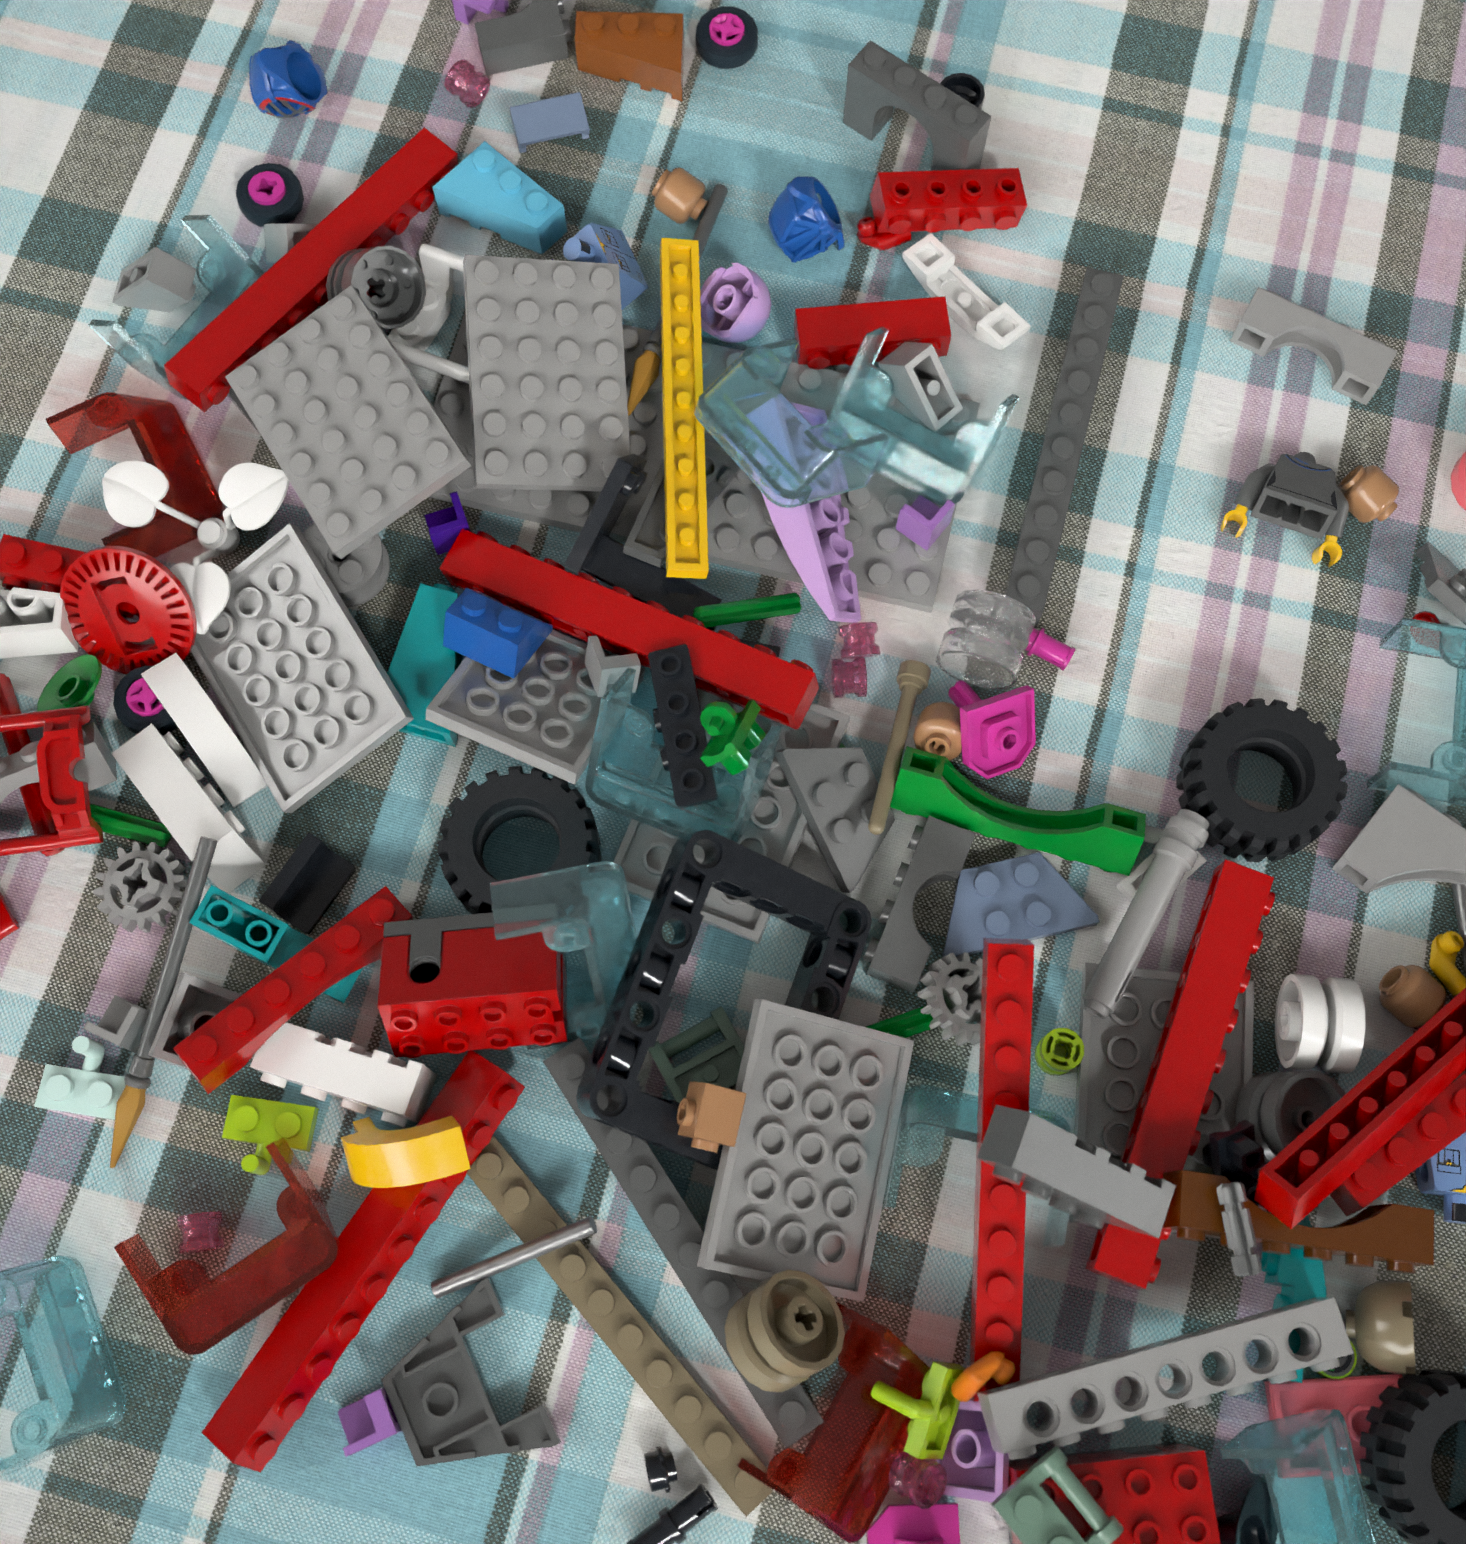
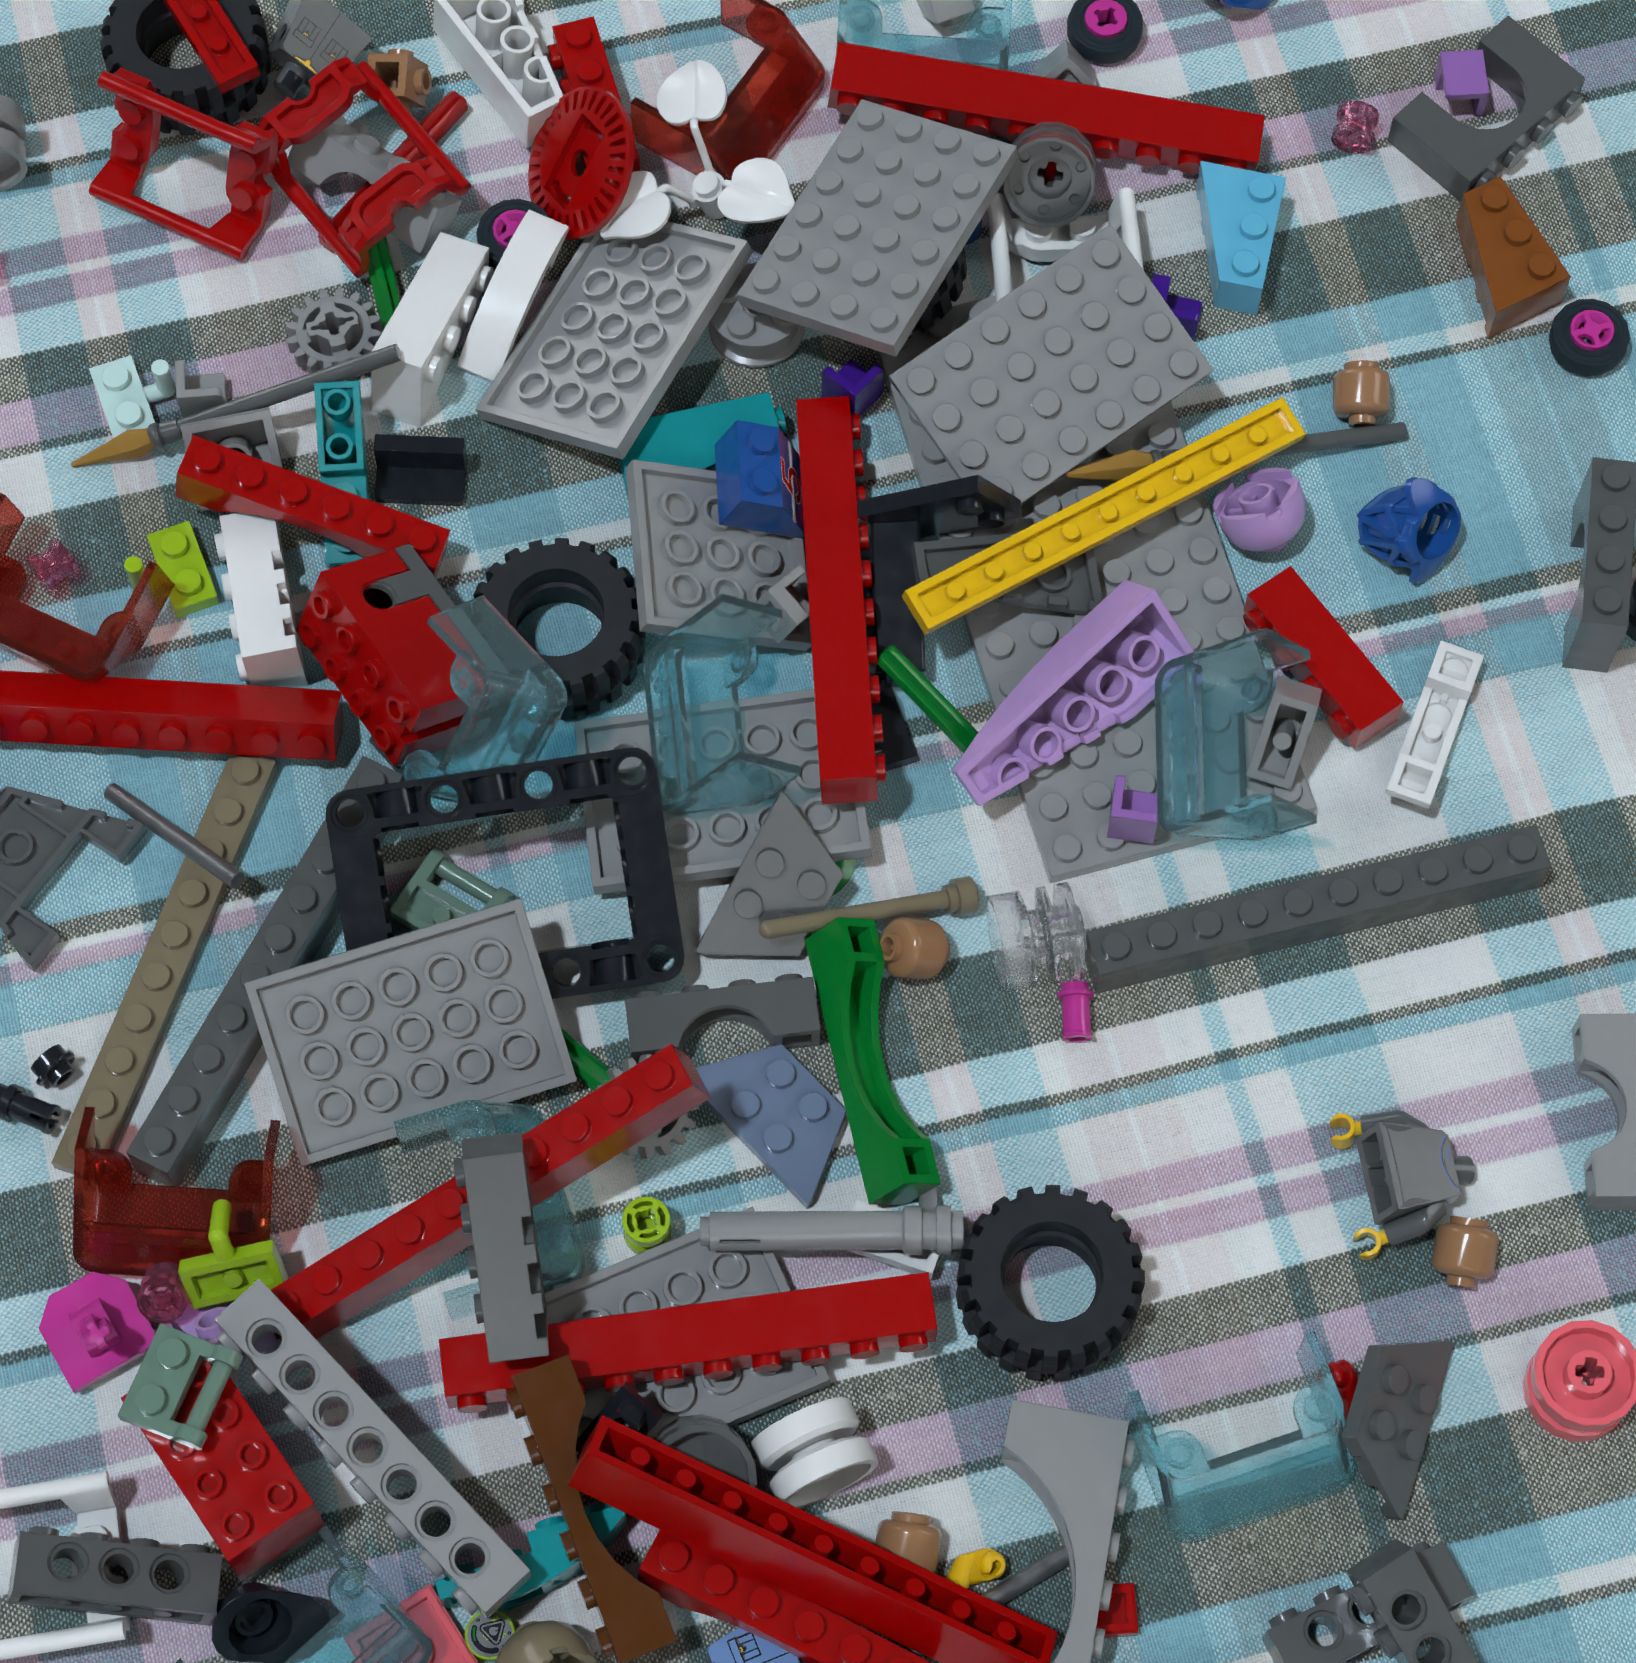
camera: 60 degrees right, 5 degrees down
(72, 684) = (488, 163): green dish -> none
(404, 1155) = (208, 681): yellow arch -> none
(549, 120) = (1363, 226): sand blue hinge -> none
(608, 245) = (1239, 364): medium blue torso -> none
(681, 726) = (752, 690): black bracket -> none
(710, 1115) = (384, 912): medium nougat brick -> none
(731, 735) = (771, 729): green hips -> none
(774, 441) = (1086, 627): clear light blue windscreen -> none
(784, 1331) = (226, 1085): dark tan wheel -> none
(849, 677) = (921, 835): clear pink wheel -> none
(859, 640) = (966, 823): clear pink wheel -> none
(882, 241) = (1450, 612): red arm -> none
(947, 200) = (1531, 651): red brick -> none
(979, 1373) = (293, 1283): orange arm -> none
(995, 730) = (943, 996): dark pink piece -> none
(1239, 1229) = (538, 1432): dark grey axle -> none

